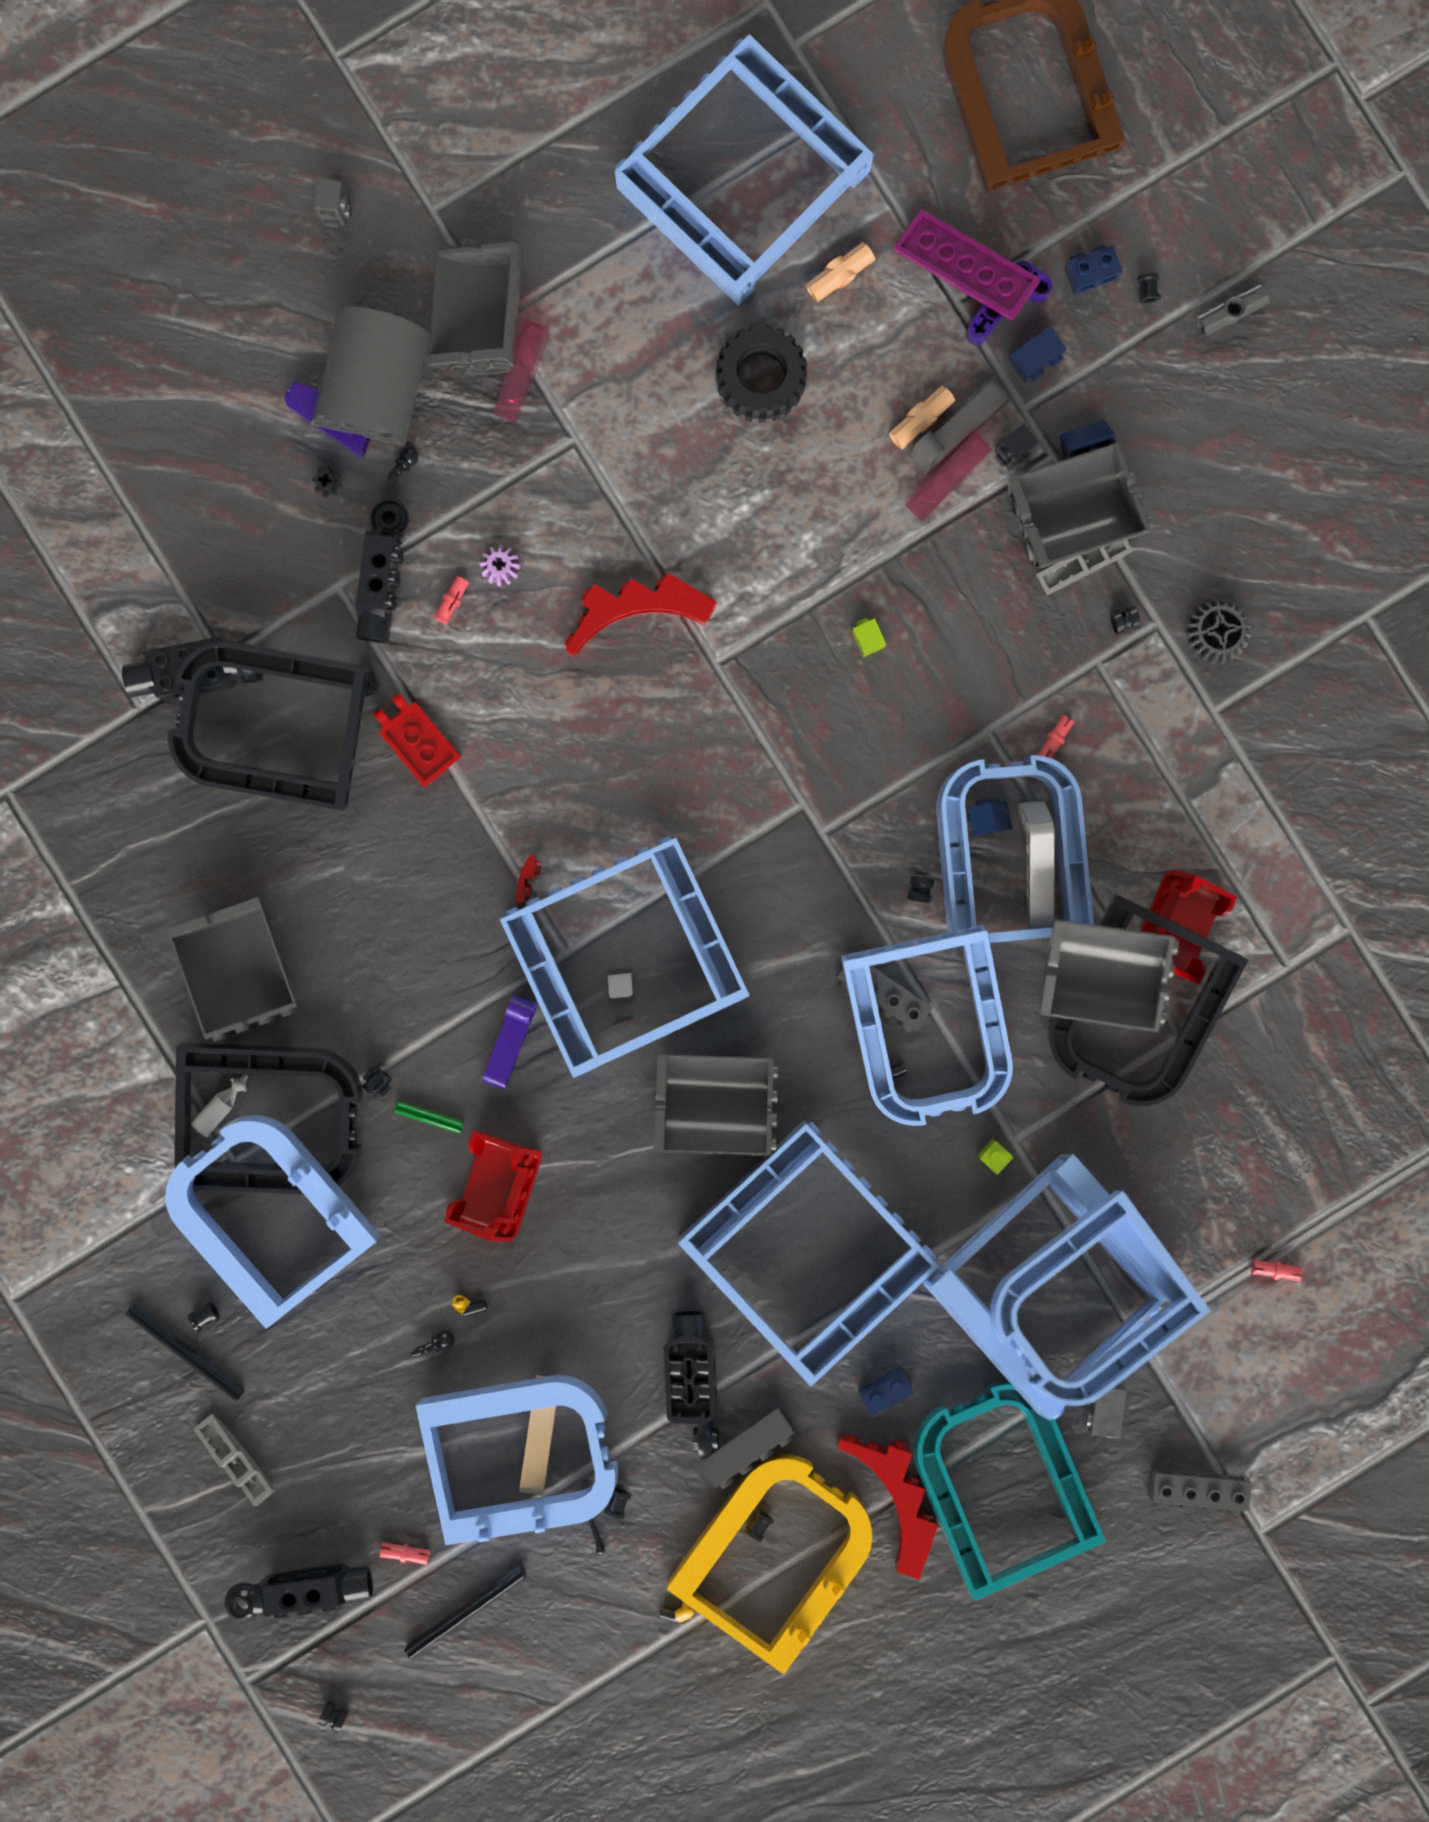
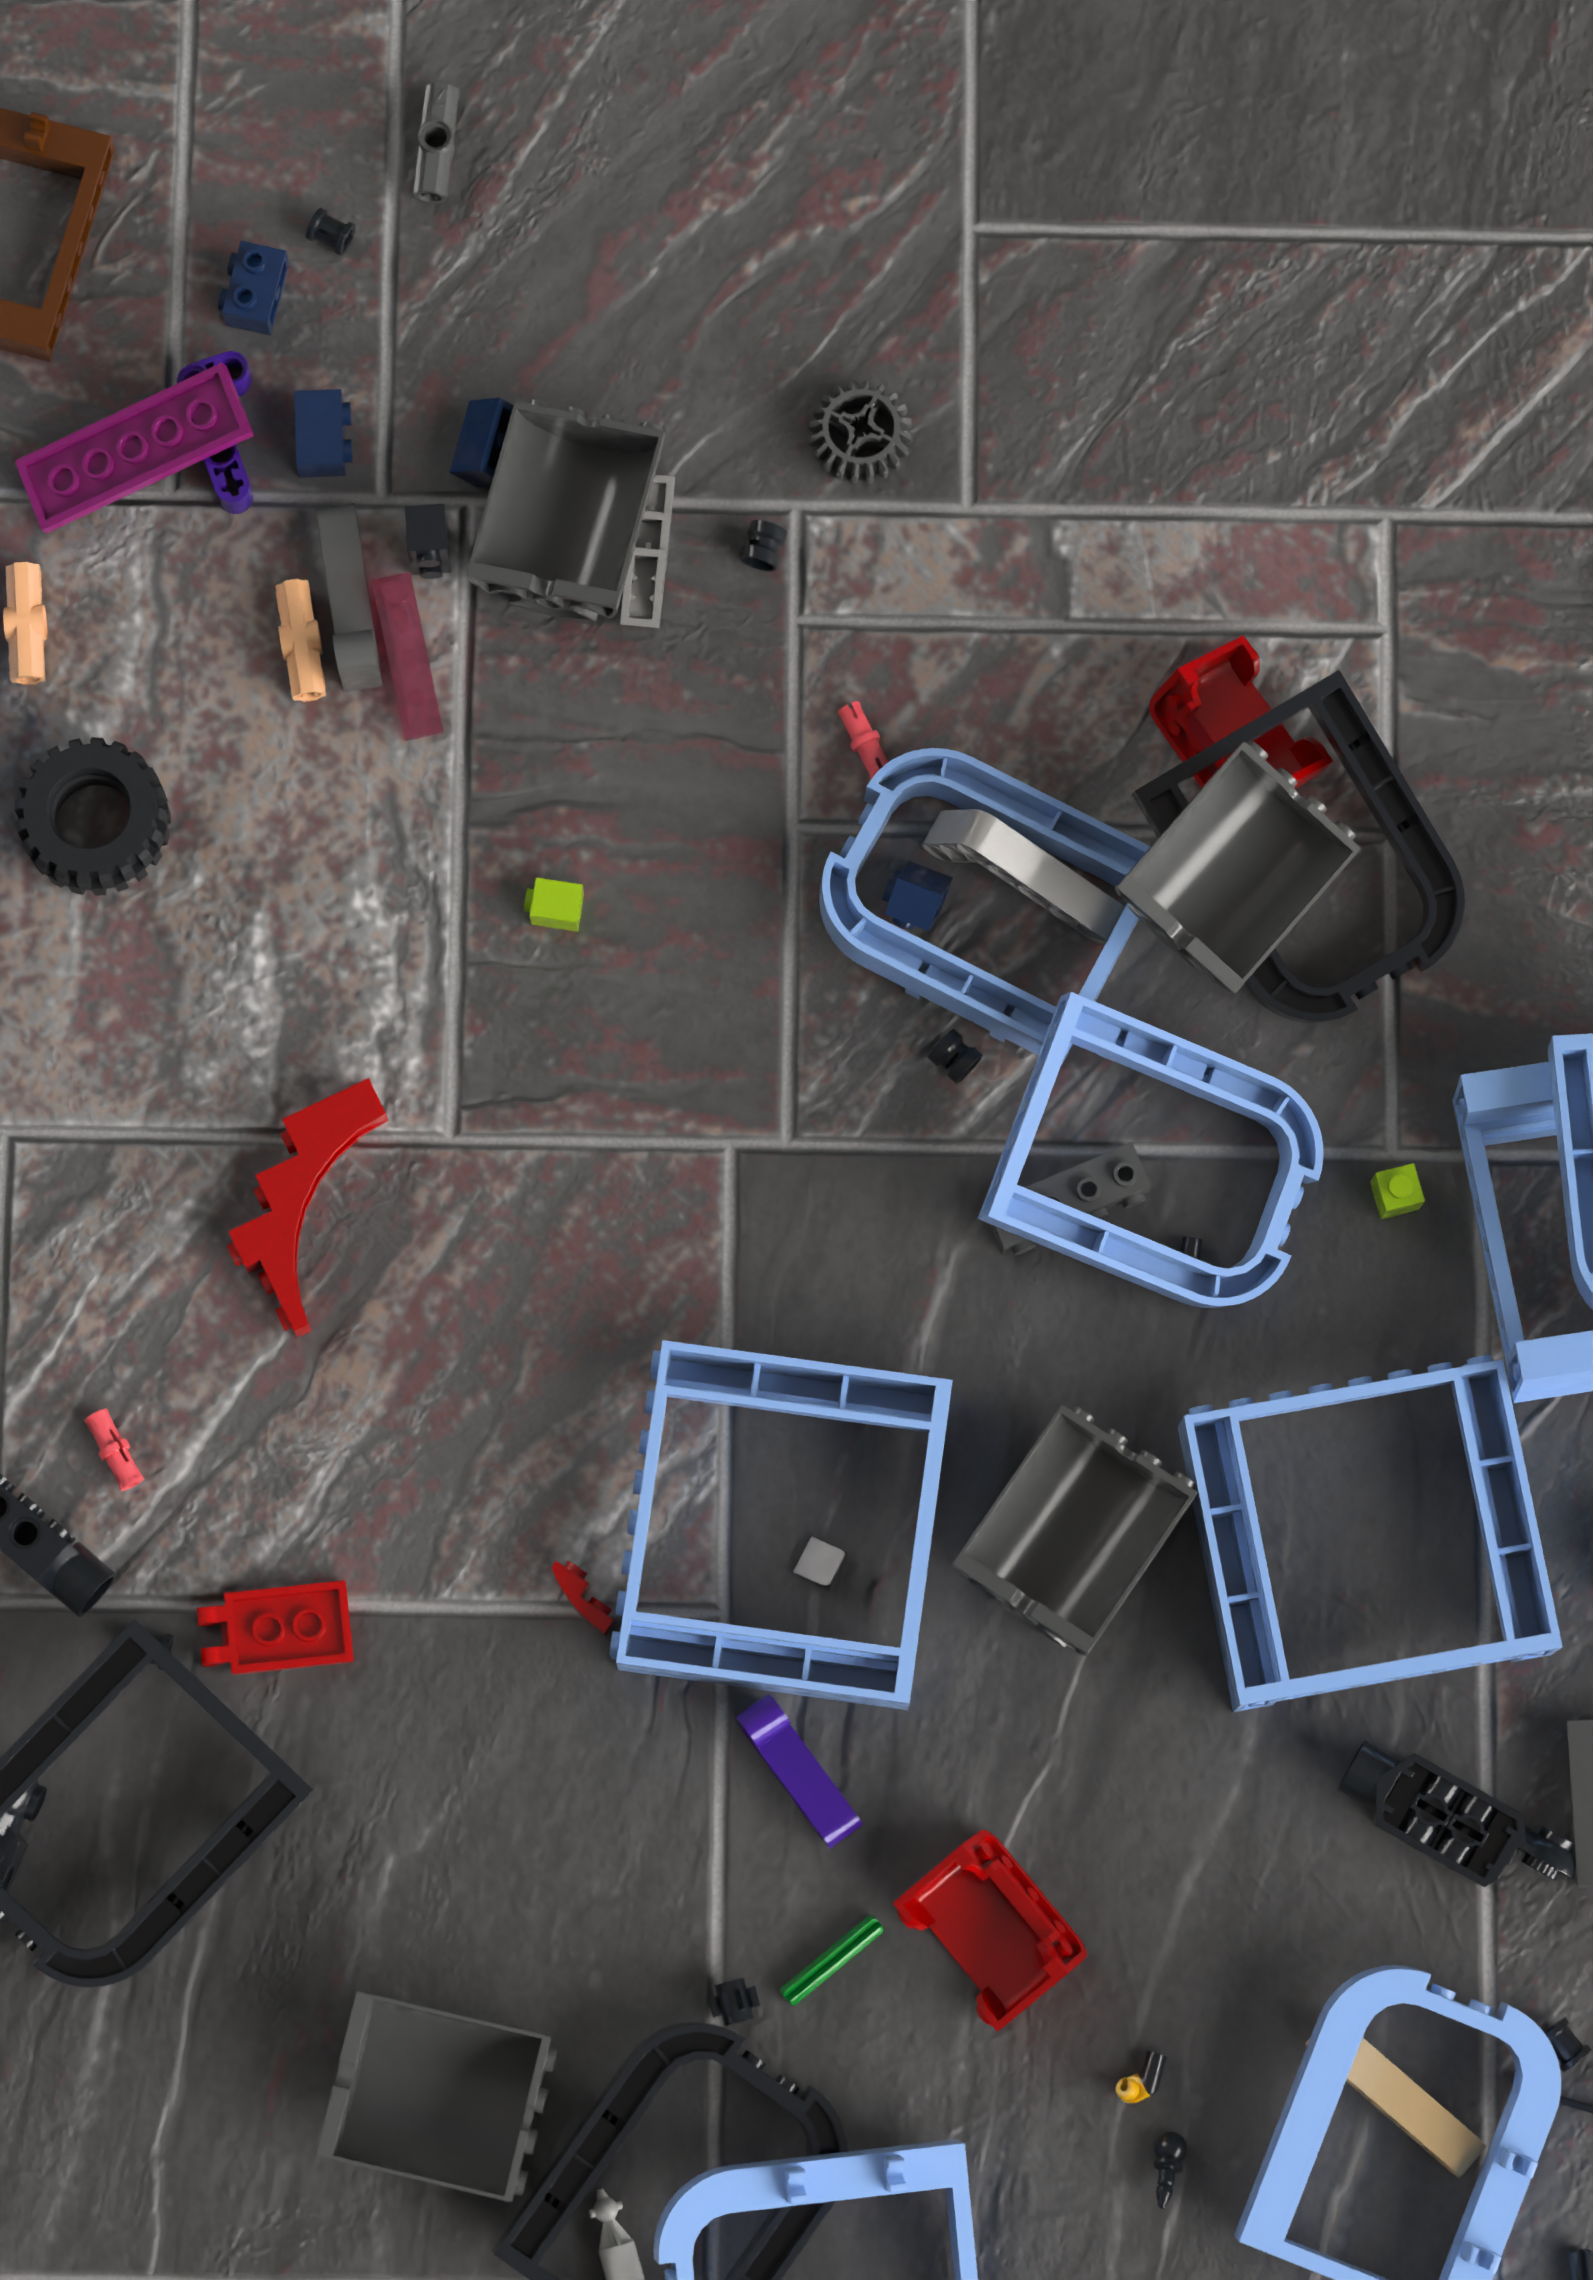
camera: 60 degrees left, 10 degrees down
(493, 559) = (112, 1363): lavender gear -> none

